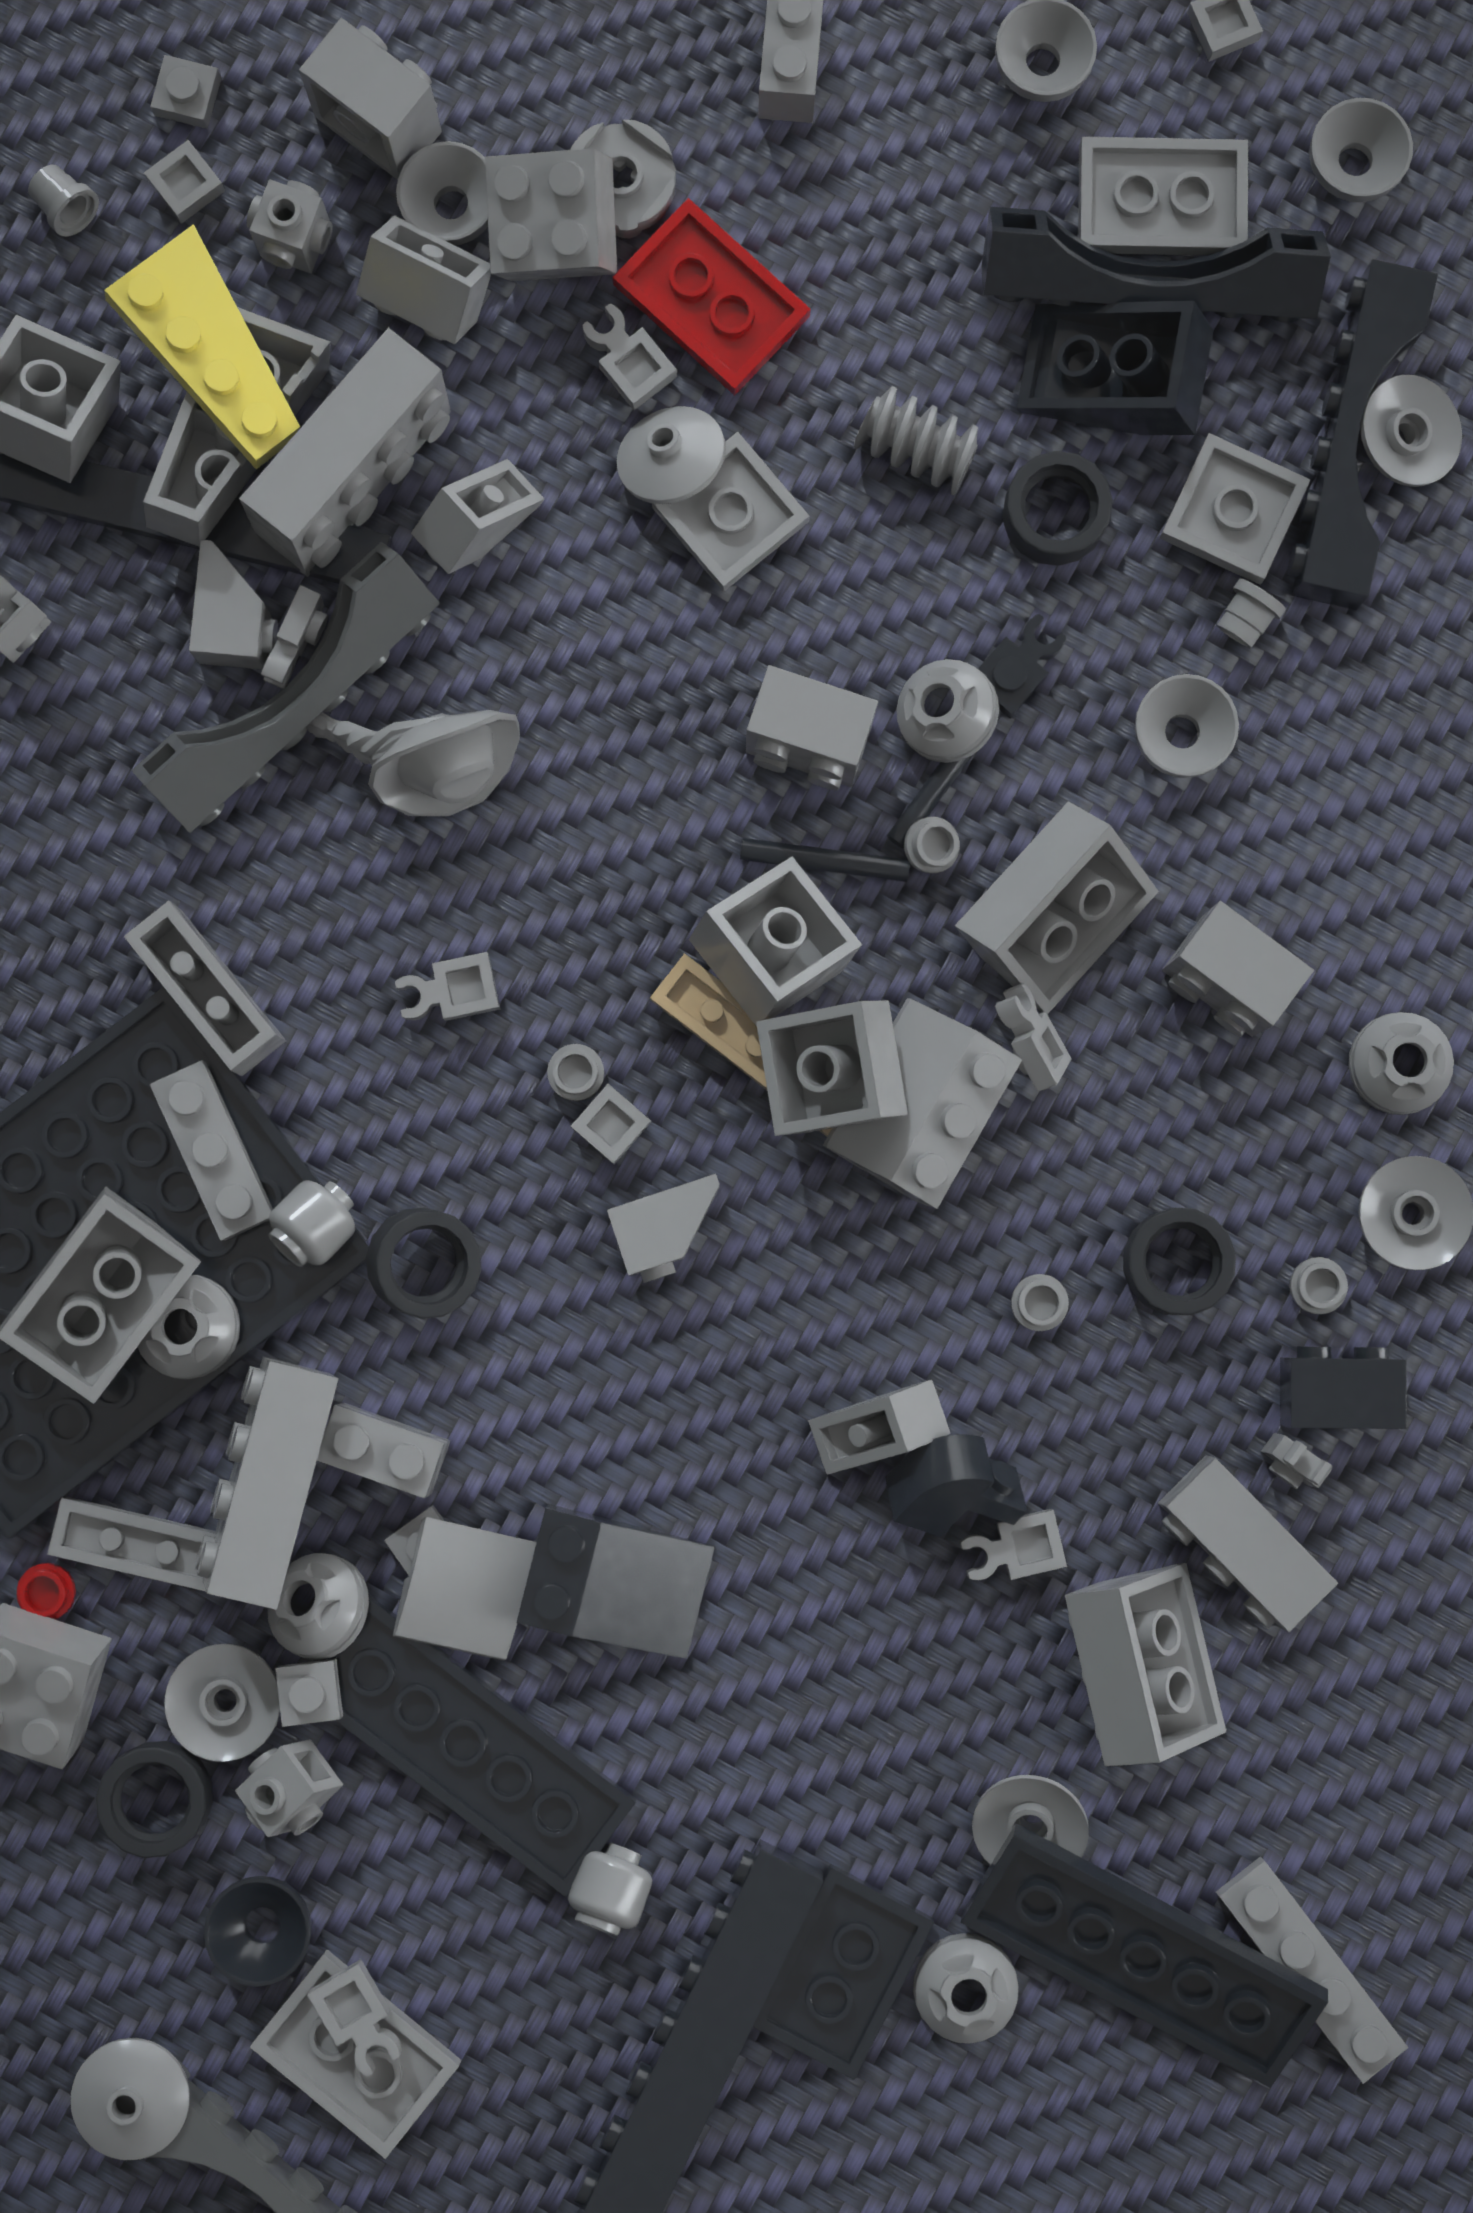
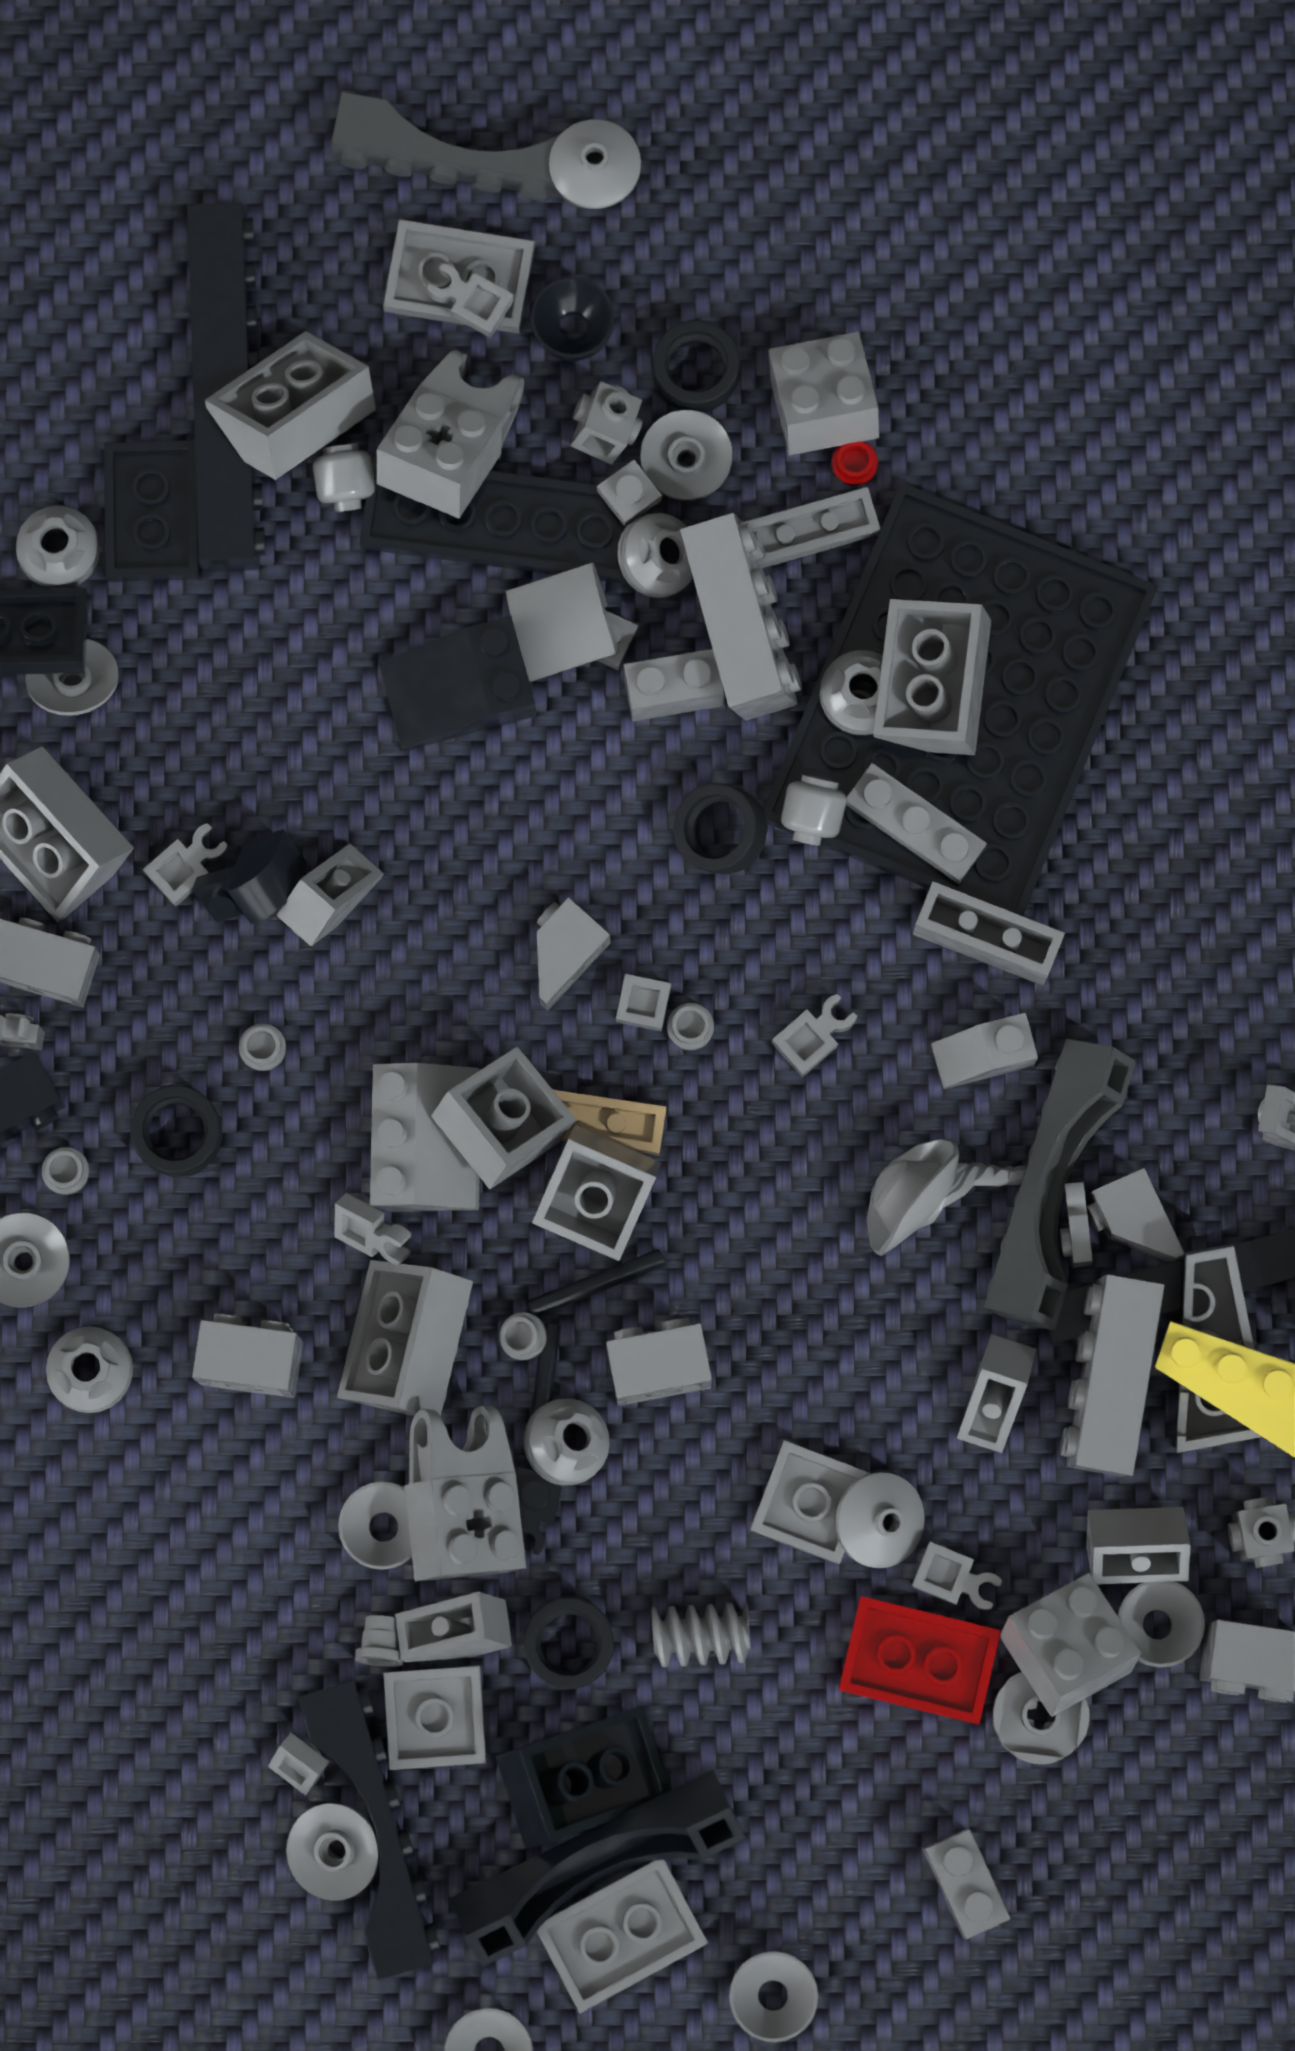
camera: 155 degrees right, 5 degrees down
(281, 870) = (985, 1051): none -> light grey slope
(472, 1868) = (448, 437): none -> light grey brick
(622, 2005) = (292, 404): none -> light grey slope
(1092, 698) = (462, 1500): none -> light grey brick
(1170, 580) = (454, 1628): none -> light grey slope
(1398, 538) = (298, 1763): none -> light grey plate

